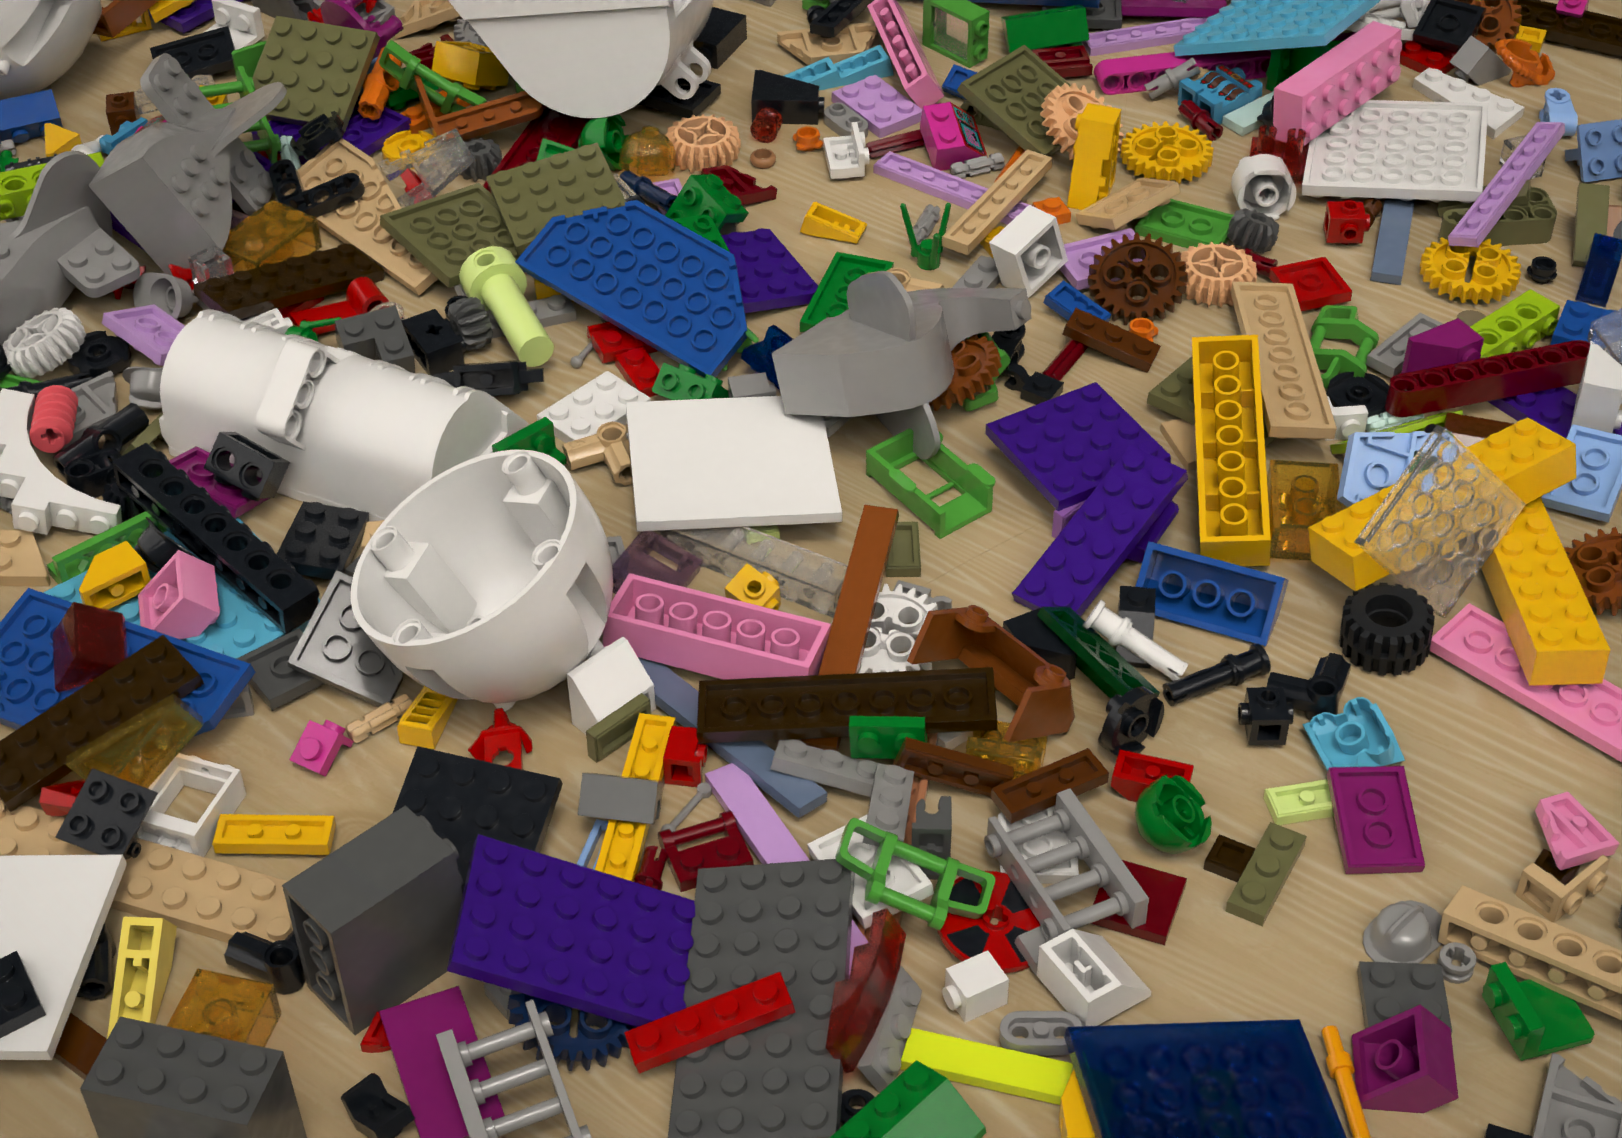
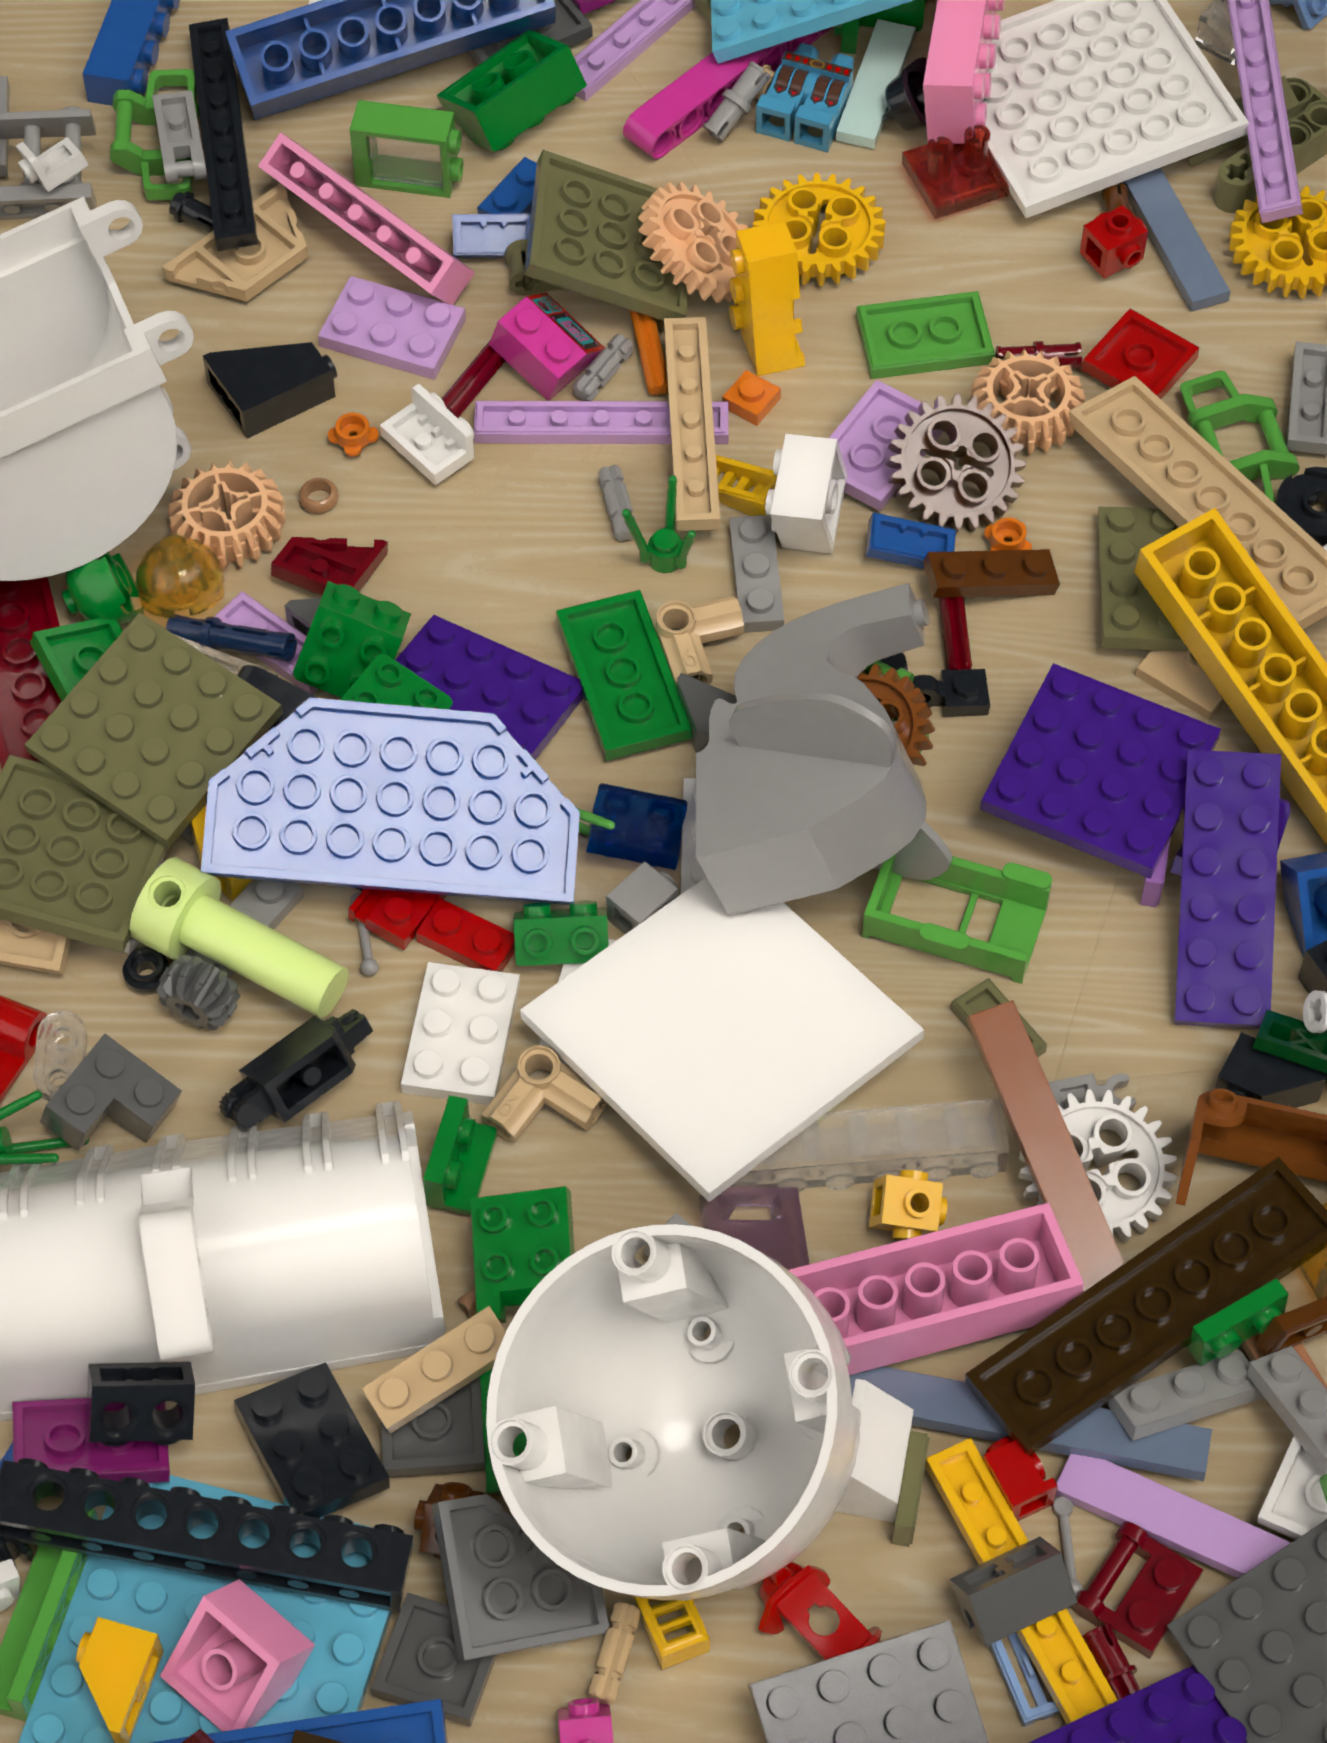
camera: 35 degrees left, 15 degrees up
(156, 547) = (148, 1600): black piece -> none
(434, 342) = (171, 1044): black brick -> none
(764, 118) = (284, 439): clear red wheel -> none
(832, 224) = (480, 575): yellow slope -> none
(839, 119) = (370, 377): light grey plate -> none
(846, 72) = (306, 283): medium azure slope -> none
(1067, 61) = (571, 131): dark red plate -> none
(1128, 204) = (847, 343): tan plate -> none
(1200, 119) = (812, 150): dark red axle -> none
(1253, 230) = (1021, 310): dark grey gear -> none
(1264, 185) = (986, 235): white brick -> none

